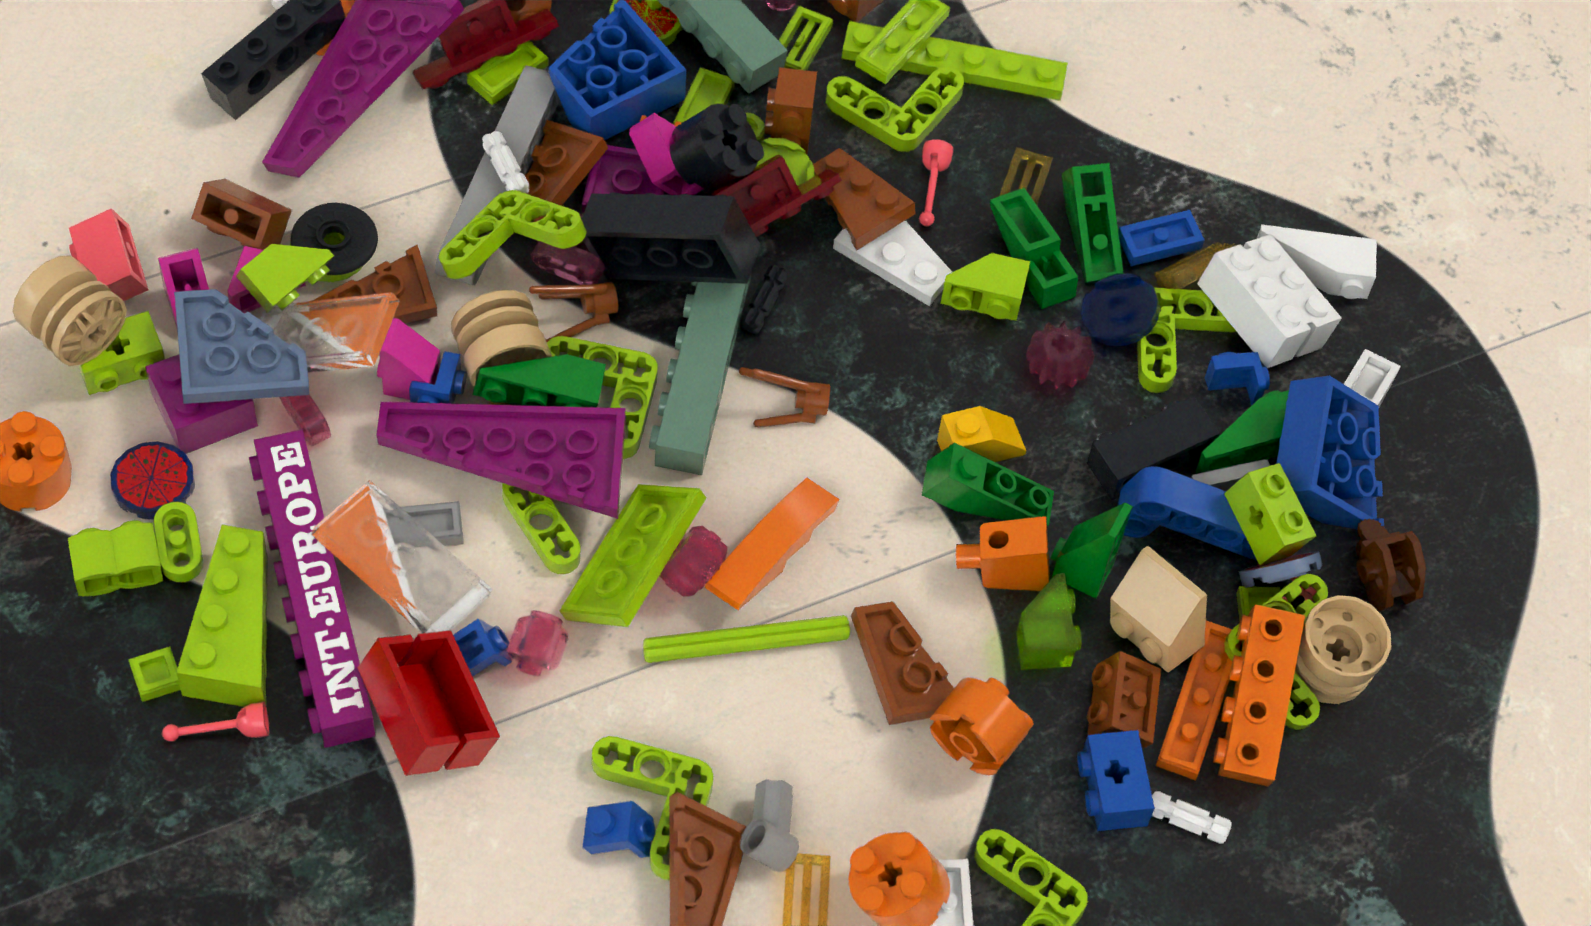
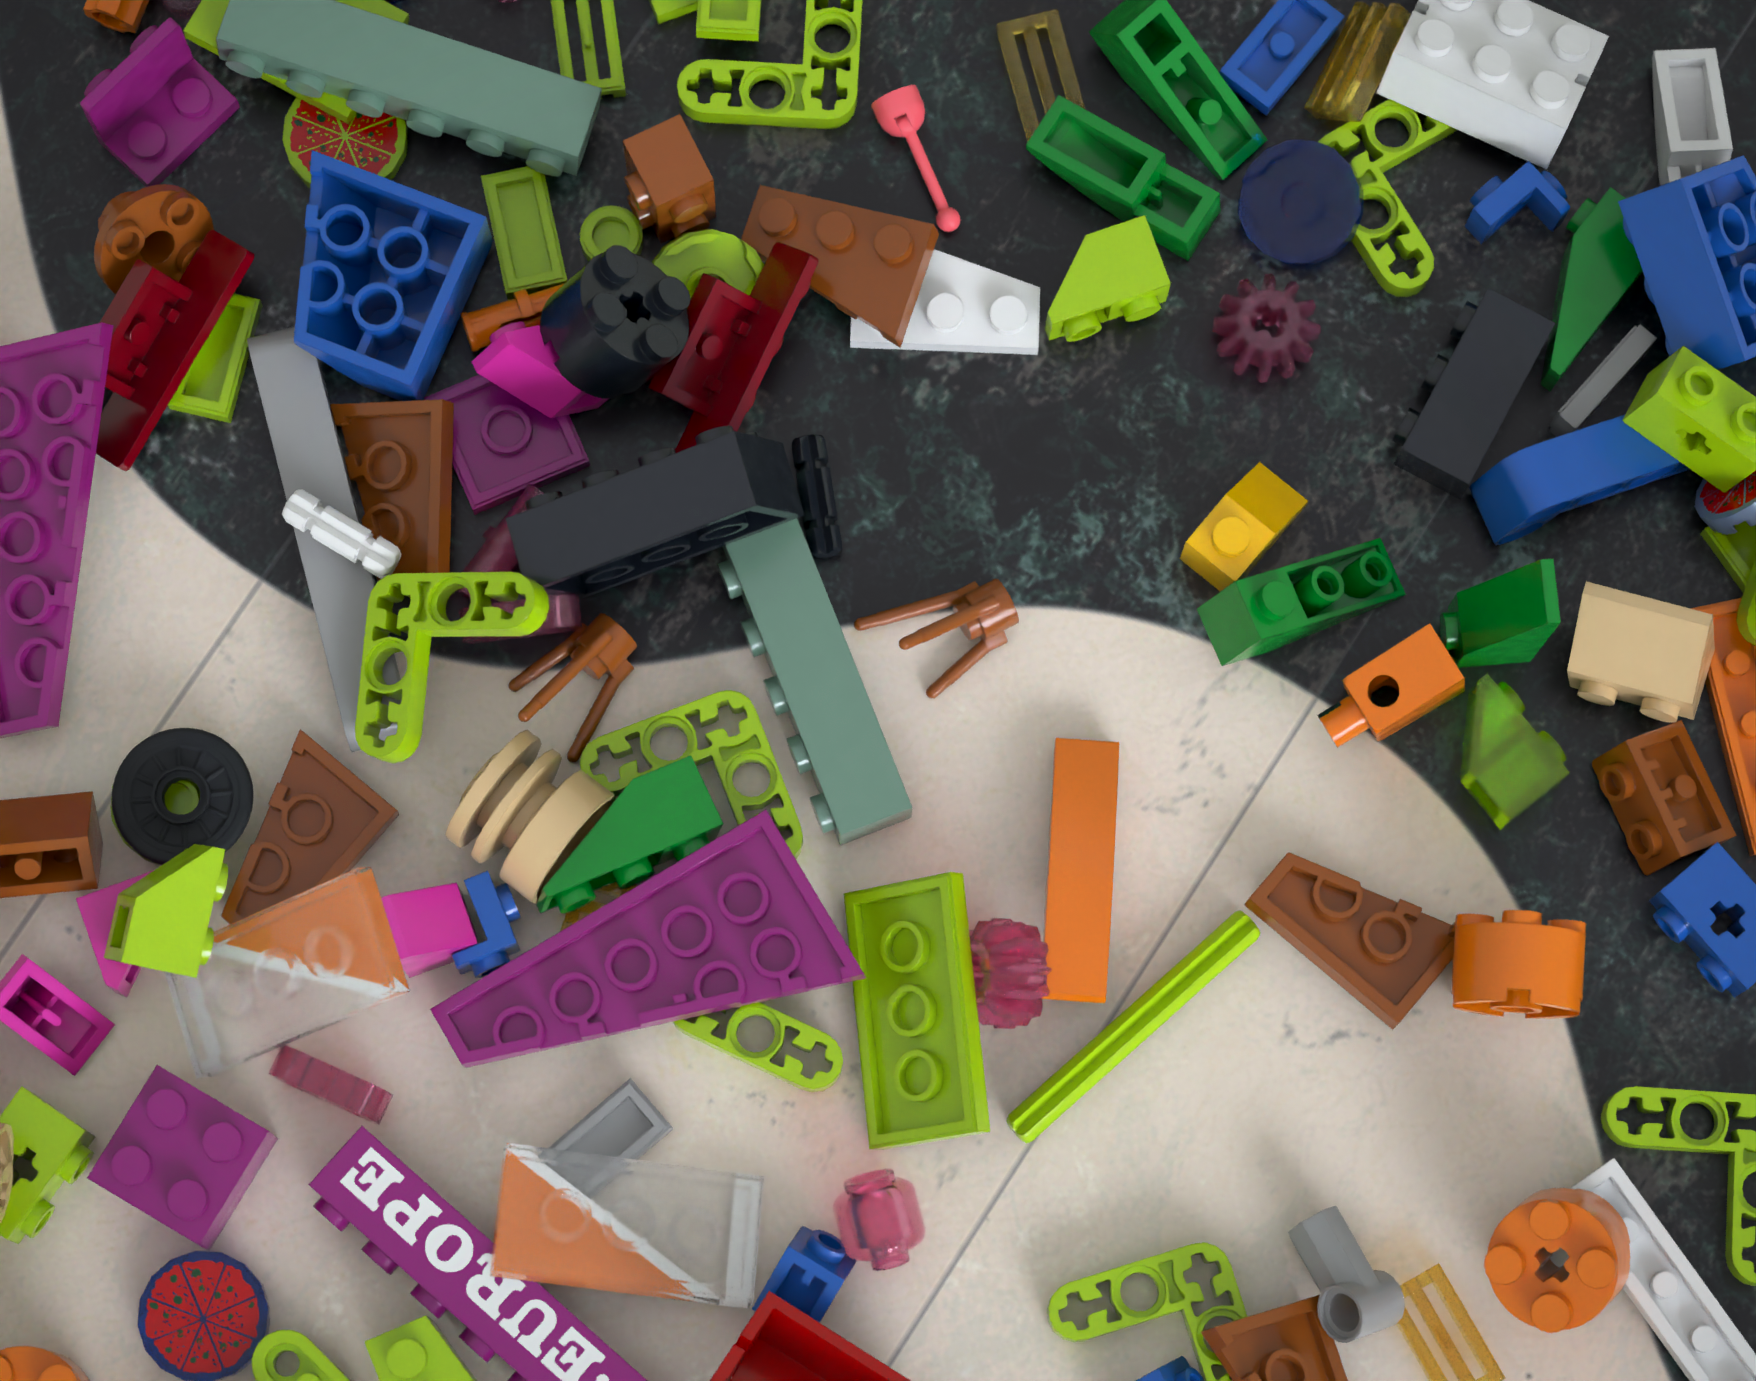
camera: 30 degrees left, 20 degrees up
(233, 353) = (198, 1091): sand blue plate -> none

